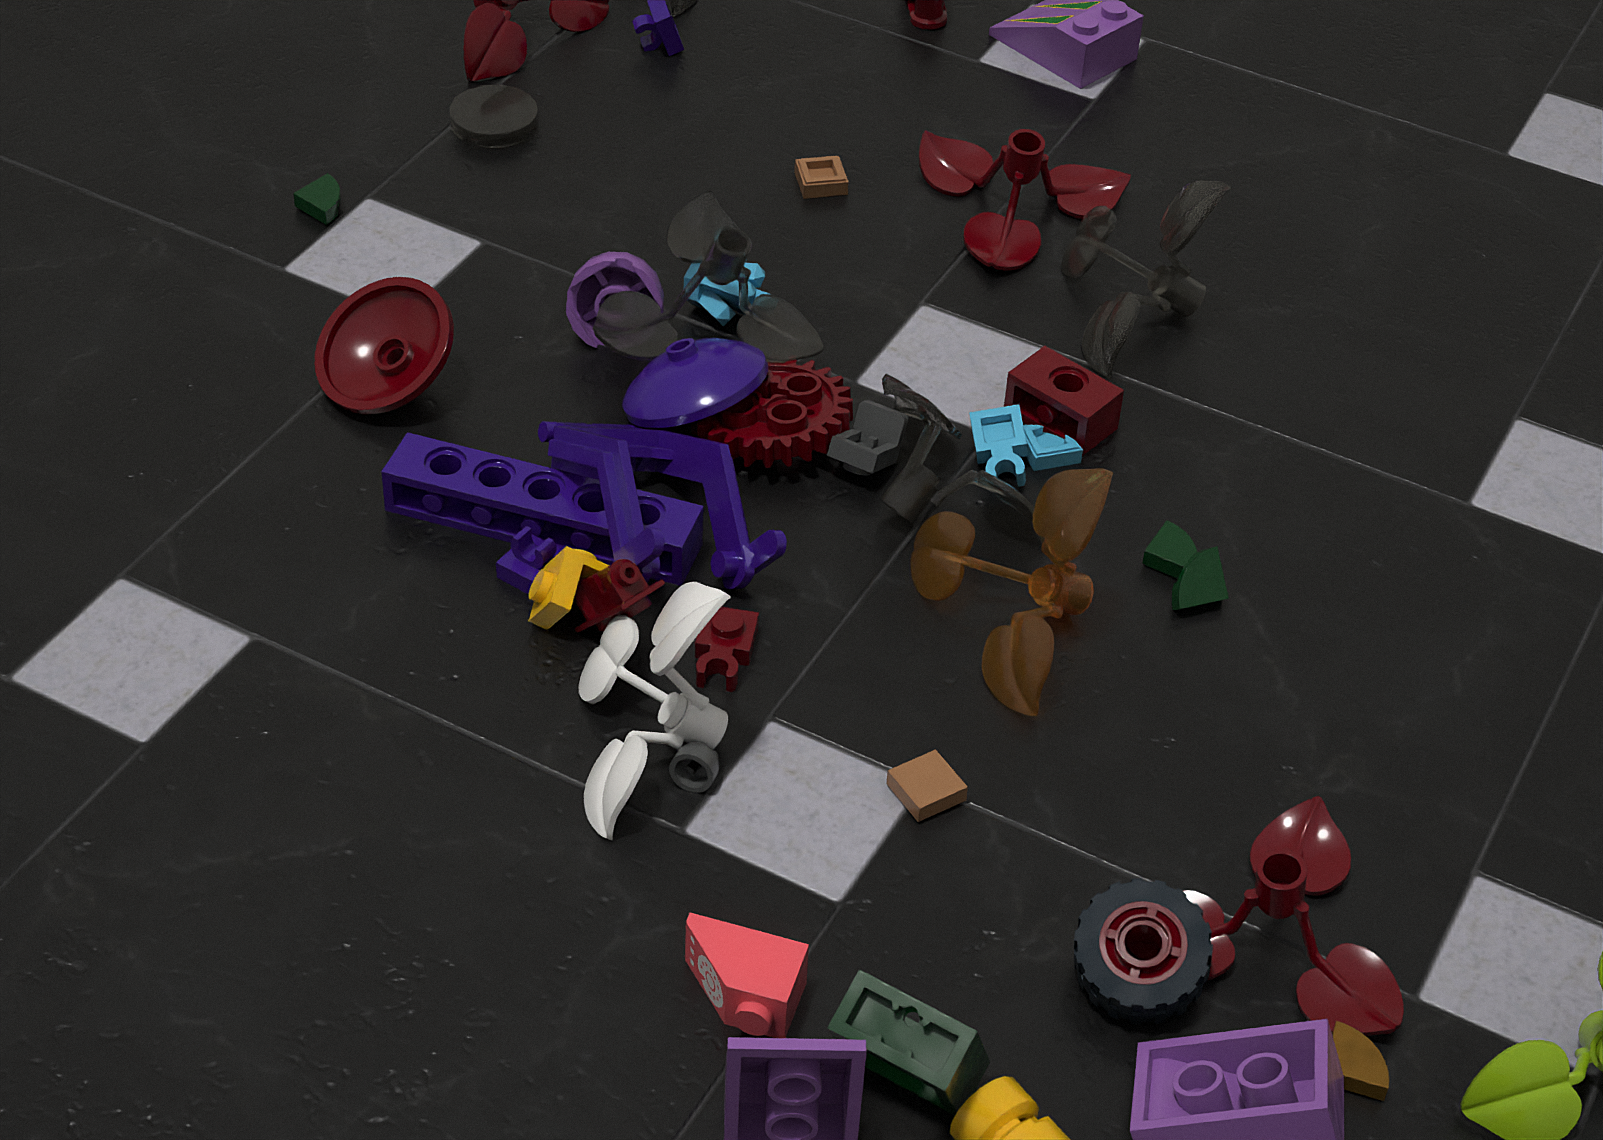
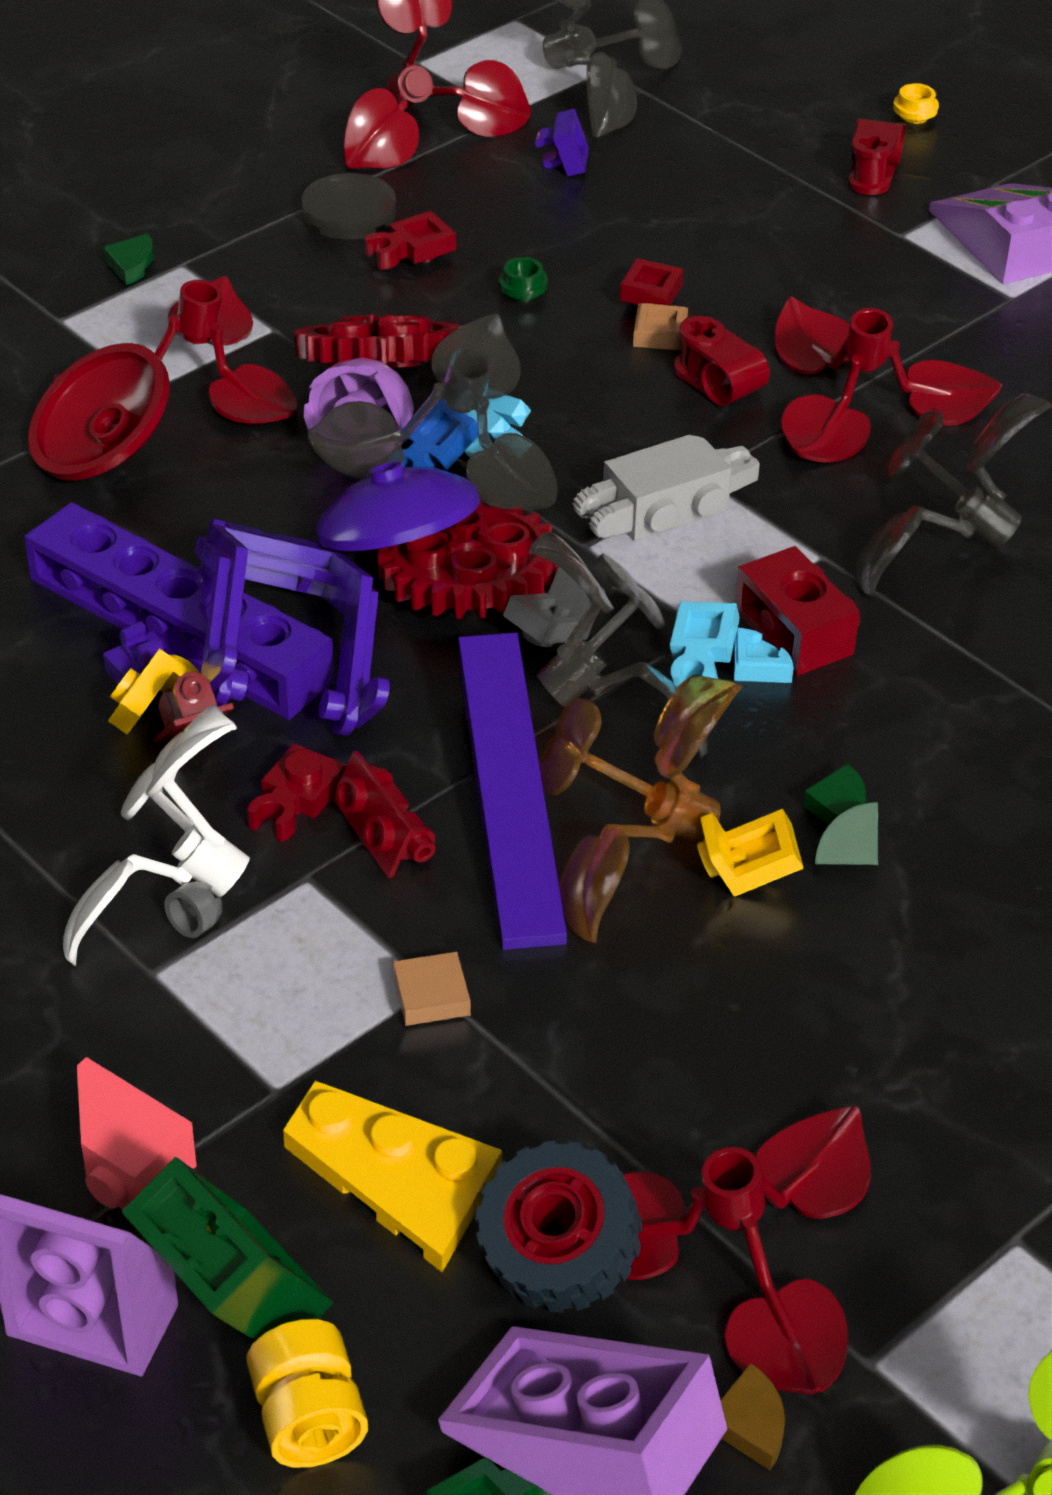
camera: 20 degrees right, 0 degrees up
(435, 240) = (217, 315): none -> dark red plant
(571, 134) = (417, 237): none -> dark red plate
(587, 234) = (388, 339): none -> dark red gear
(684, 155) = (523, 279): none -> dark green plate
(700, 311) = (440, 438): none -> blue plate
(797, 140) = (651, 283): none -> dark red plate
(810, 650) = (380, 816): none -> dark red hinge
(891, 201) = (719, 361): none -> dark red piece
(903, 317) = (664, 487): none -> light grey hinge
(908, 603) = (510, 792): none -> dark purple slope
(984, 937) = (398, 1165): none -> yellow wing
(1130, 610) = (751, 852): none -> yellow bracket

